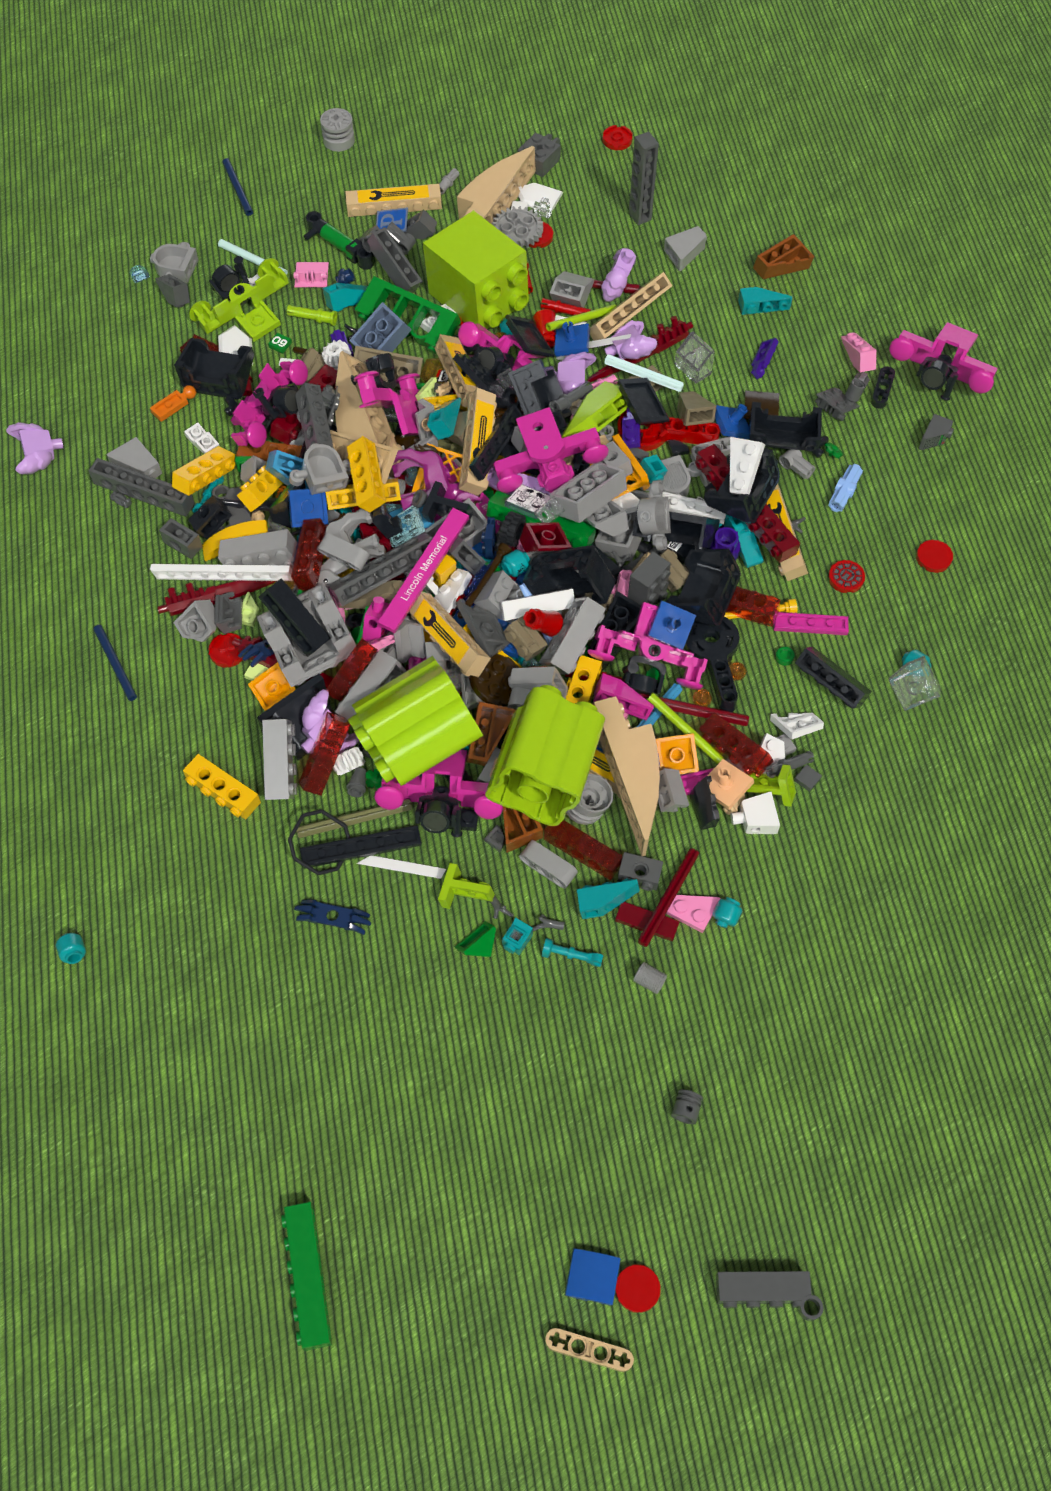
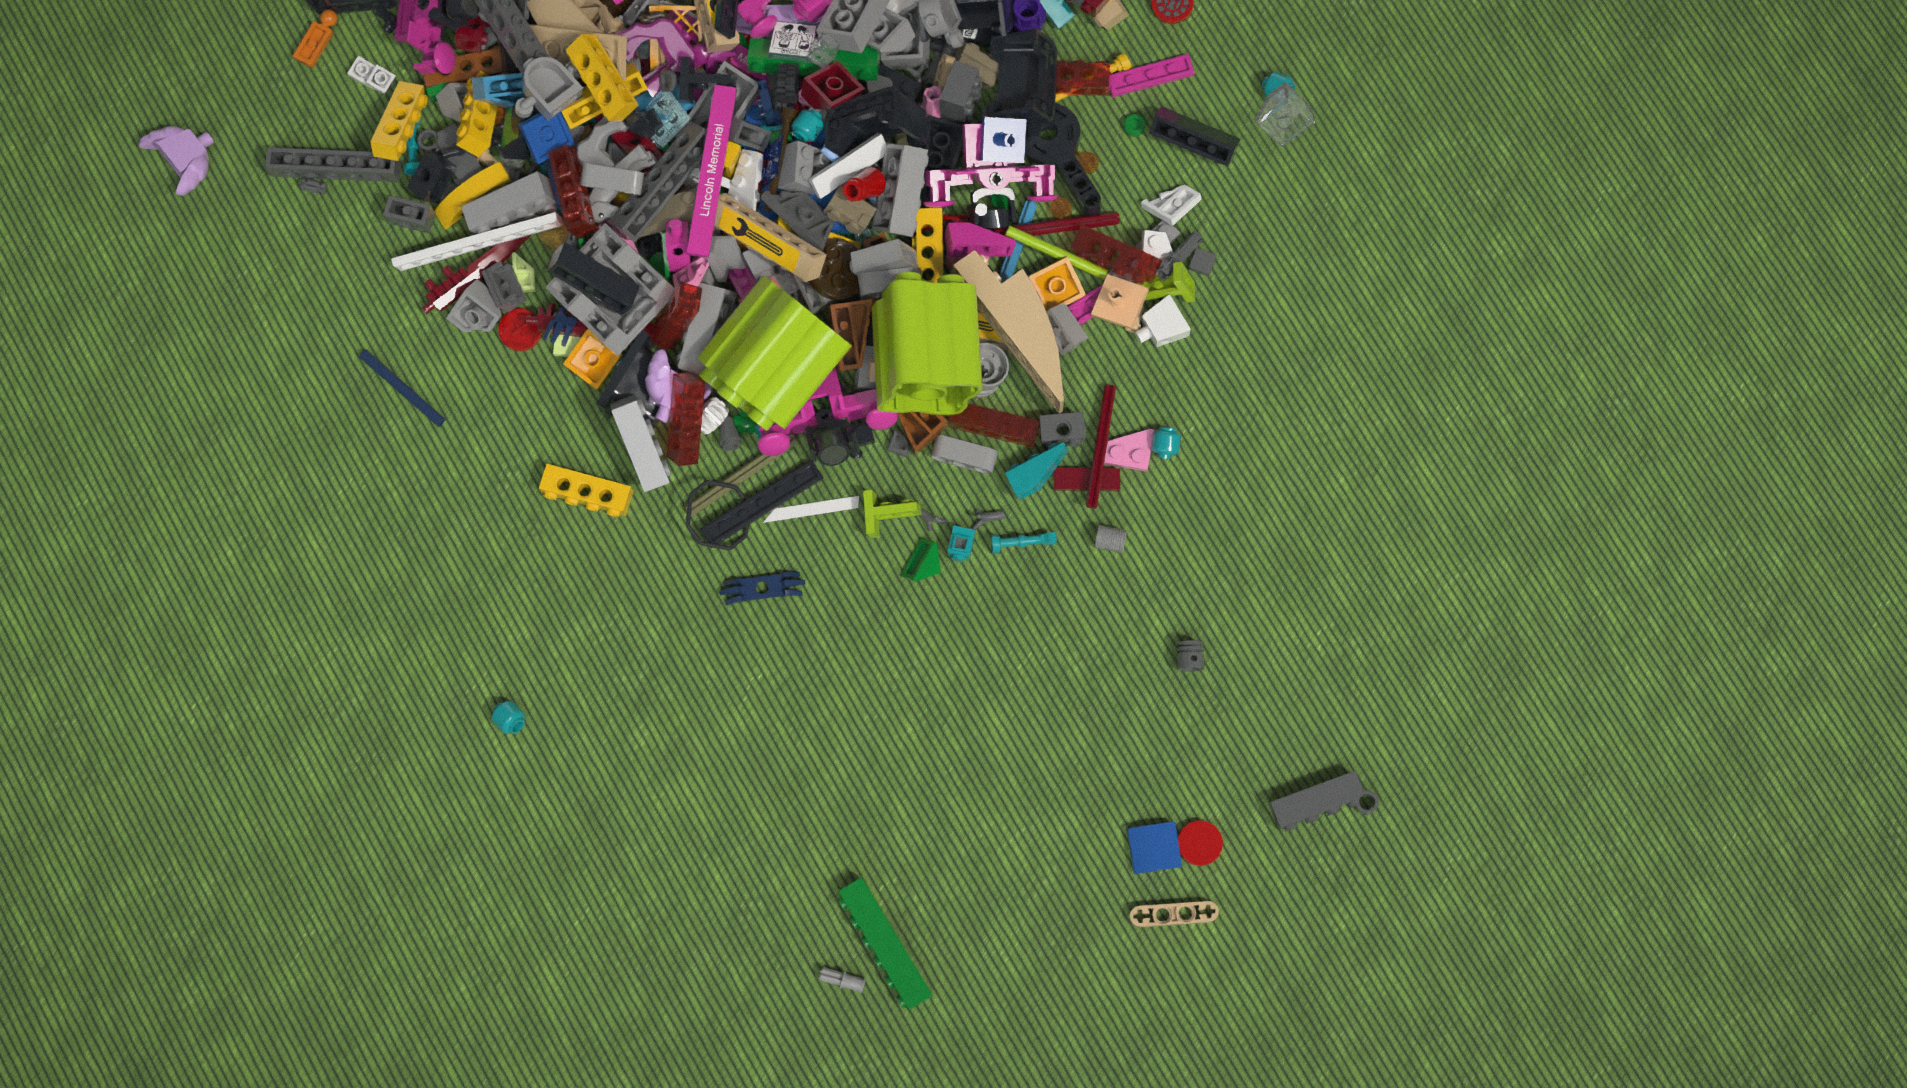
camera: 15 degrees left, 15 degrees up
(135, 457) = (308, 131): light grey slope -> none
(254, 1295) = (842, 979): none -> light grey axle
(705, 804) = (1104, 332): black slope -> none

